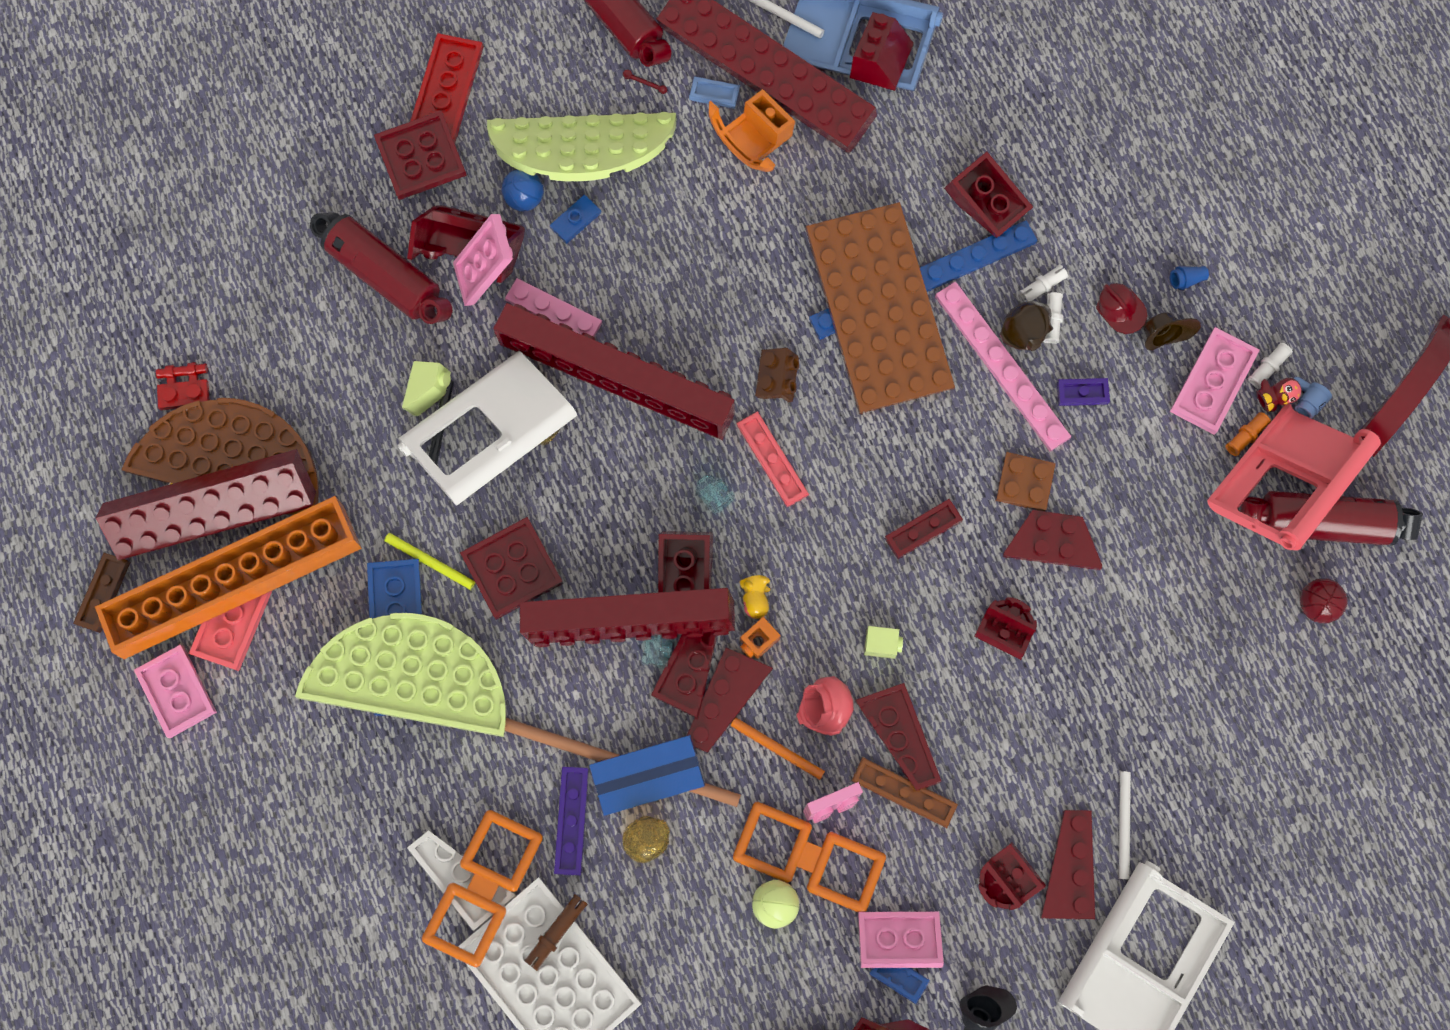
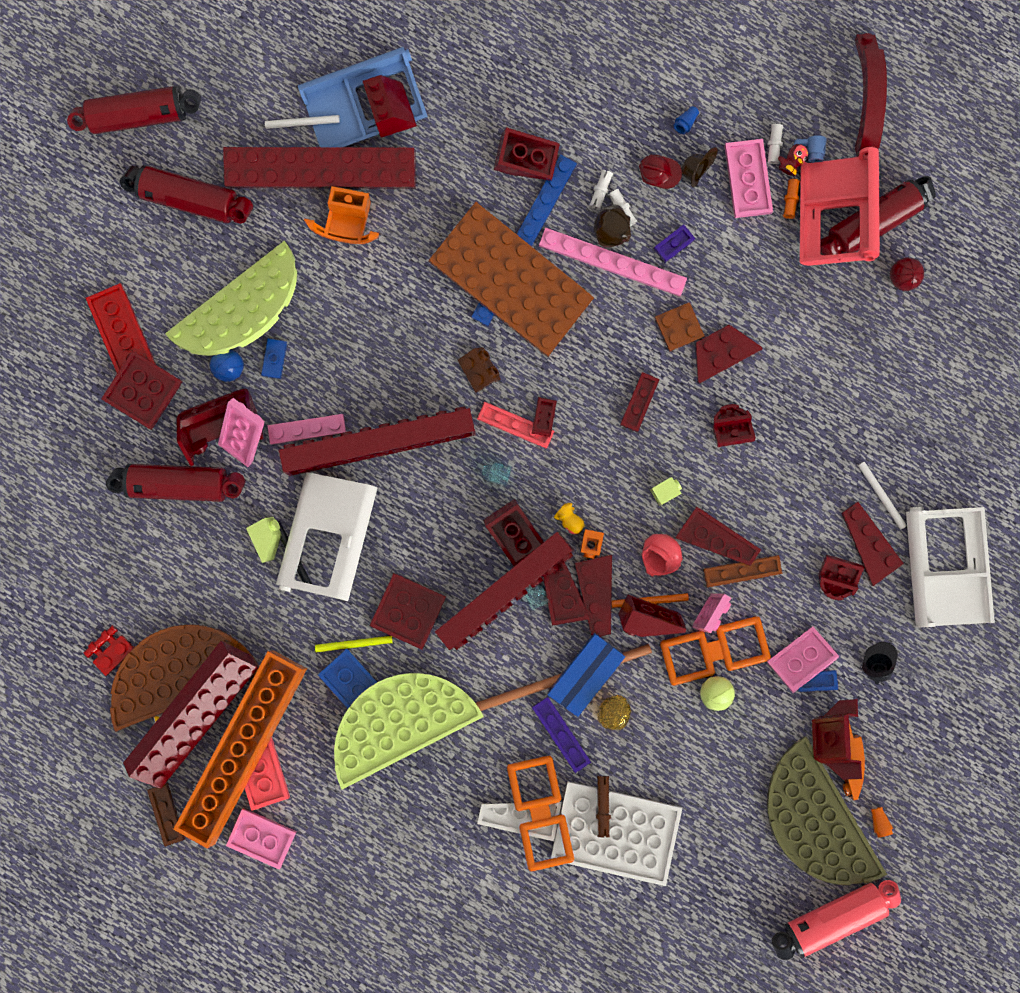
camera: 40 degrees left, 10 degrees up
(627, 74) = (232, 236): dark red hinge -> none
(718, 92) = (298, 208): medium blue tile -> none
(759, 762) = (649, 619): none -> dark red slope
(808, 471) = (544, 417): none -> dark red plate

